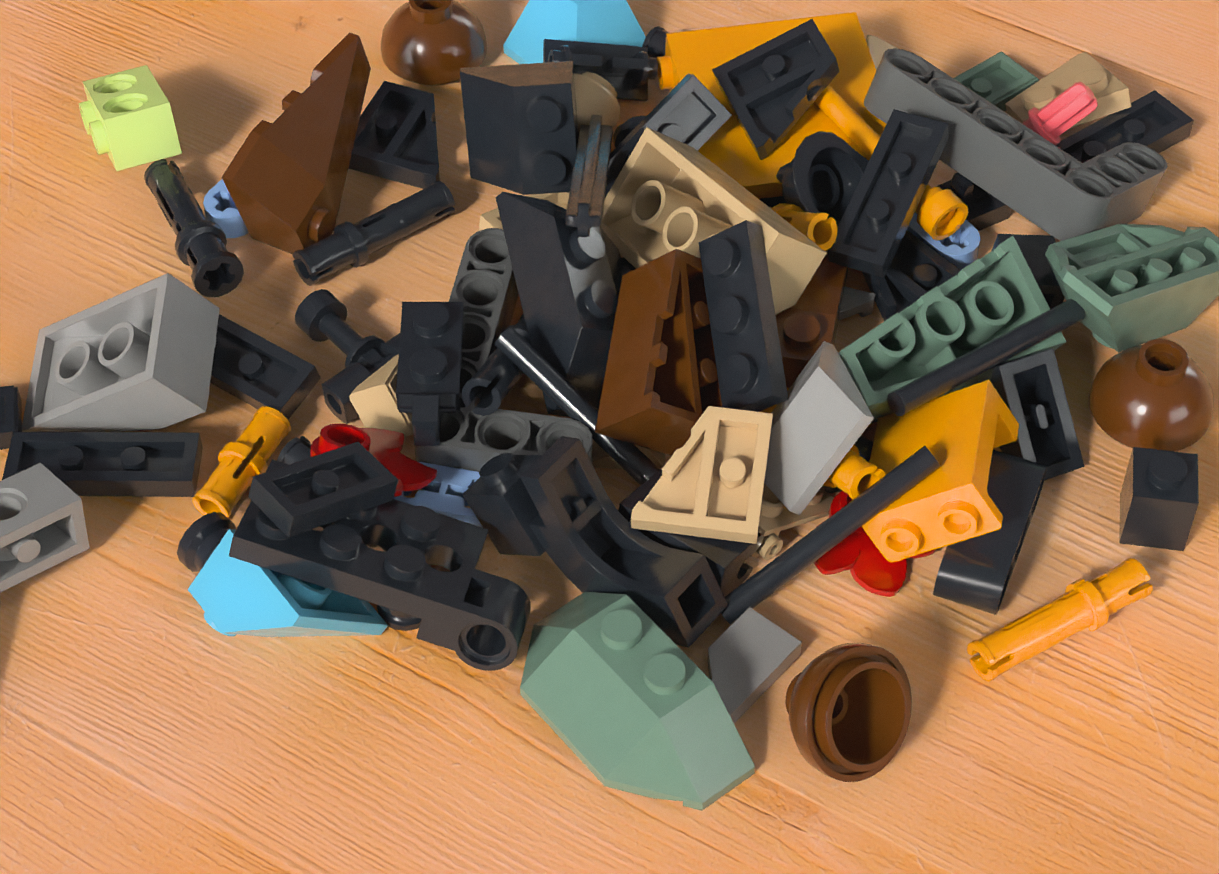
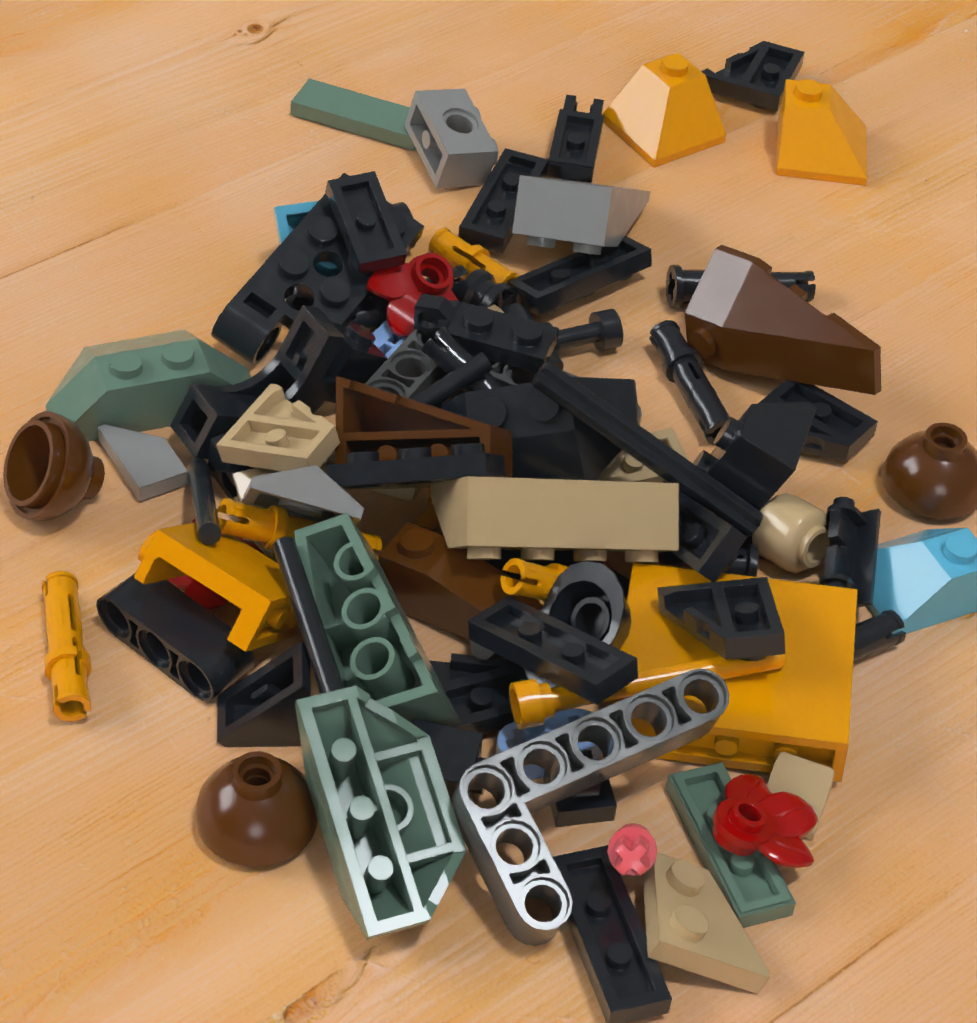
camera: 105 degrees right, 5 degrees down
(129, 118) = (866, 263): yellowish green brick -> none
(317, 409) = (482, 290): none -> black wheel
(963, 61) = (763, 821): none -> red plate
(1158, 498) = (135, 747): black brick -> none

